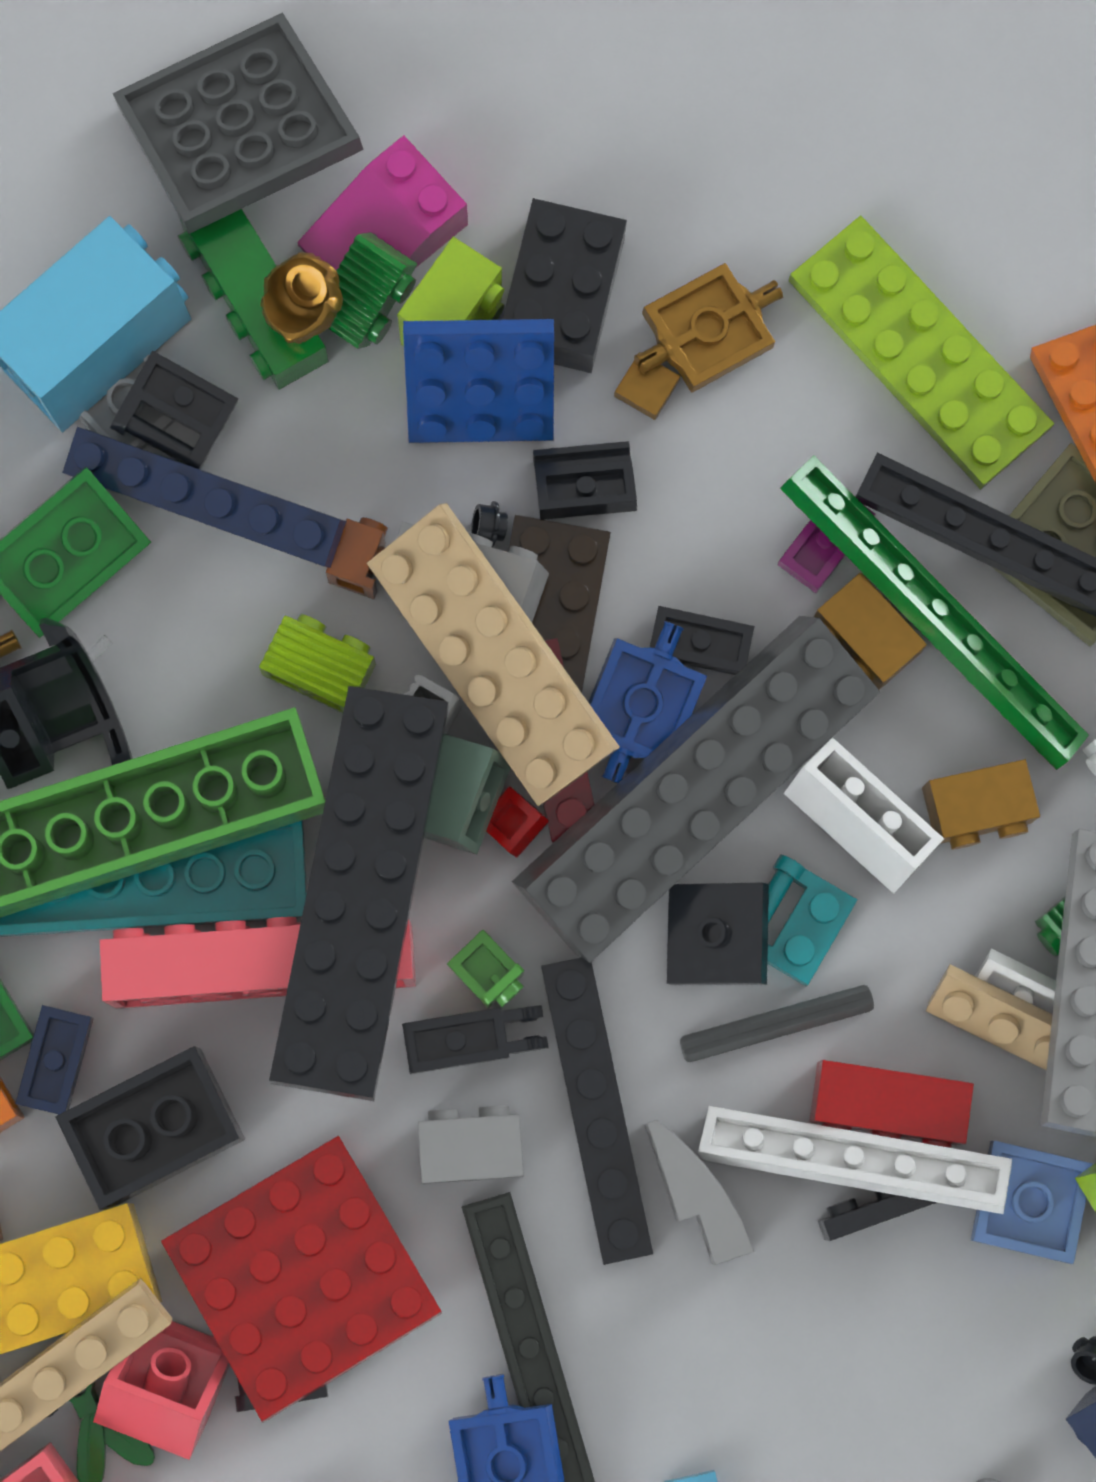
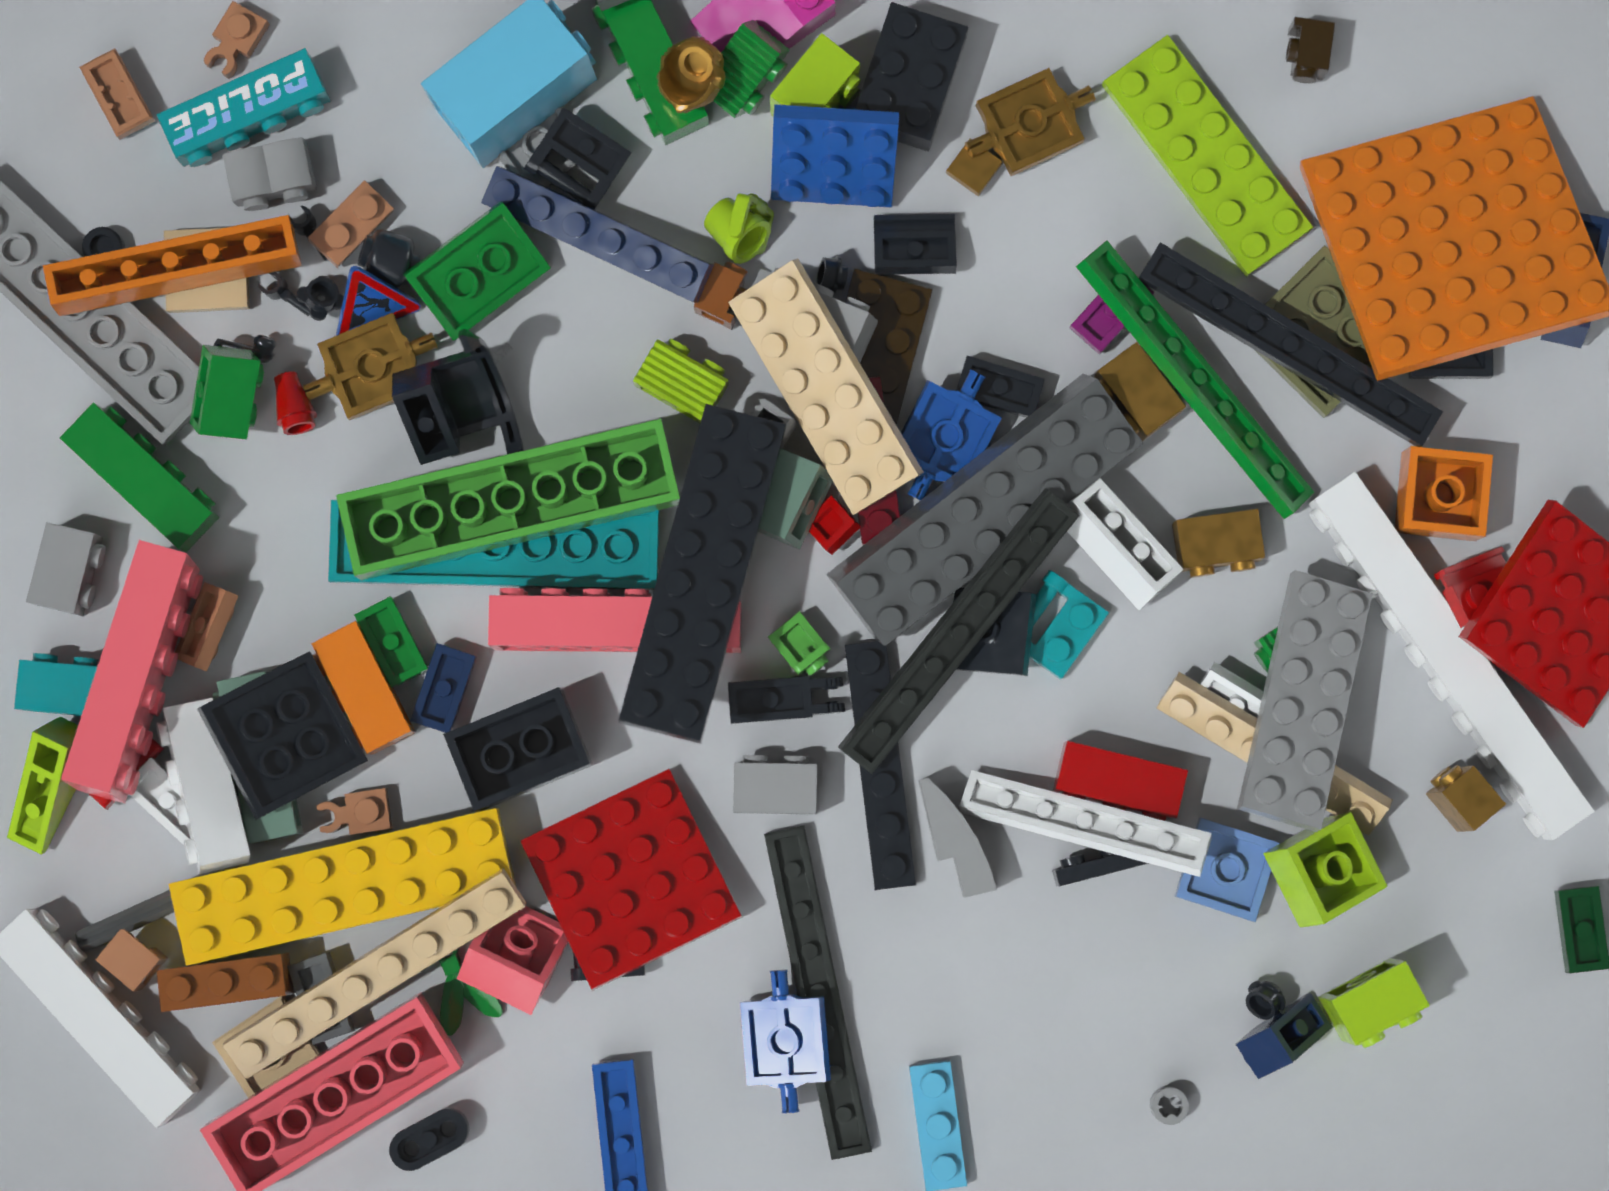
camera: 10 degrees right, 5 degrees up
(373, 479) = (738, 229): none -> lime piece
(678, 937) = (958, 631): none -> pearl dark grey tile
(776, 1023) = (1033, 708): dark grey axle -> none
(1029, 218) = (1309, 49): none -> dark brown brick

